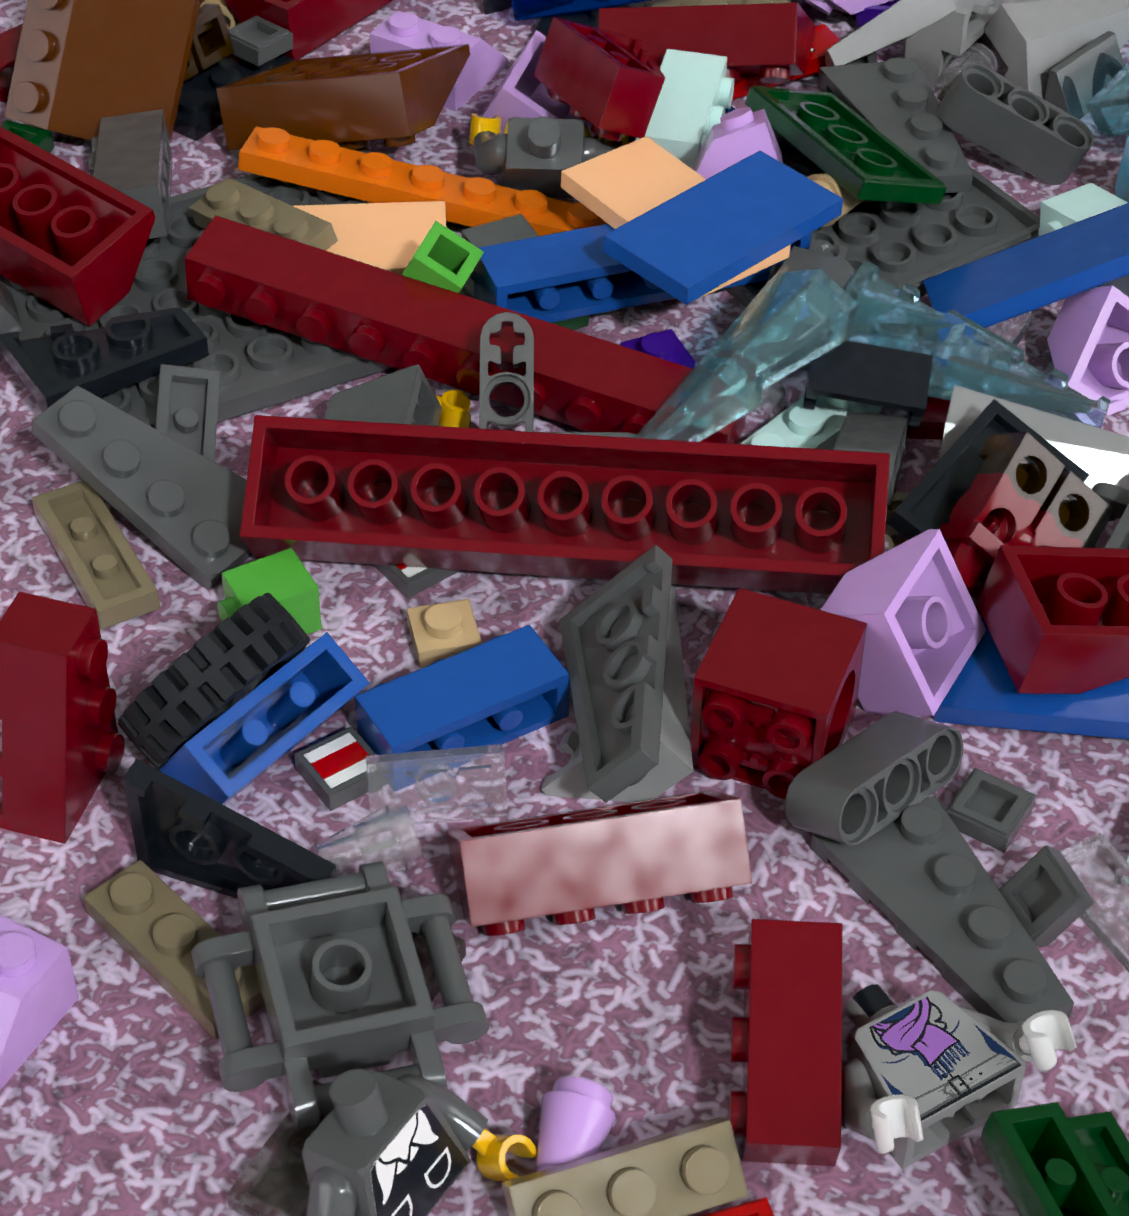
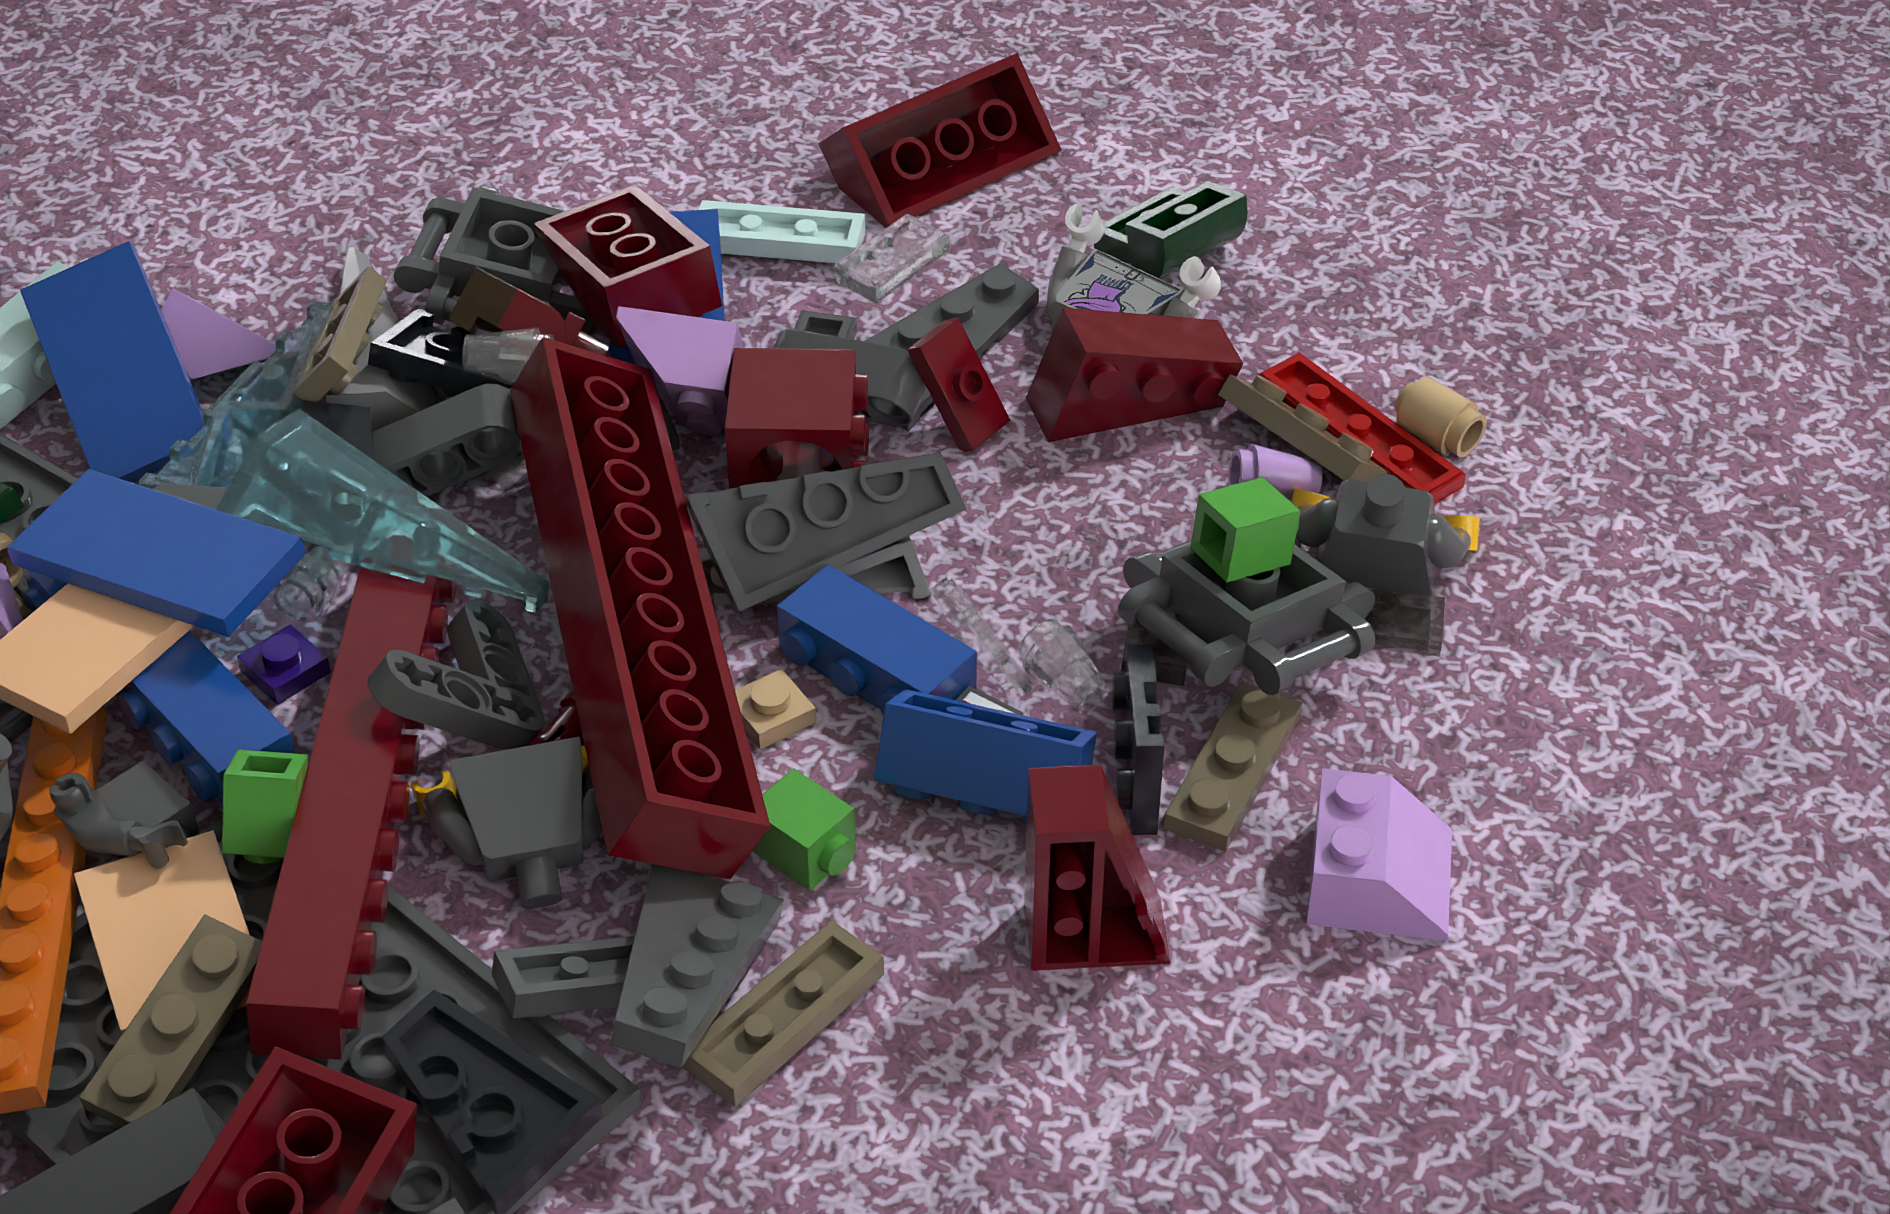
camera: 110 degrees left, 0 degrees up
(212, 677) = (933, 769): black wheel -> none
(371, 943) = (1245, 529): none -> bright green brick
(476, 208) = (101, 833): none -> dark grey arm
(600, 859) = (1020, 541): slope -> none
(813, 855) = (959, 384): none -> dark red plate
(933, 484) = (501, 353): none -> clear cone
(1022, 393) = (342, 338): none -> dark tan plate
(1046, 896) = (910, 283): dark grey tile -> none

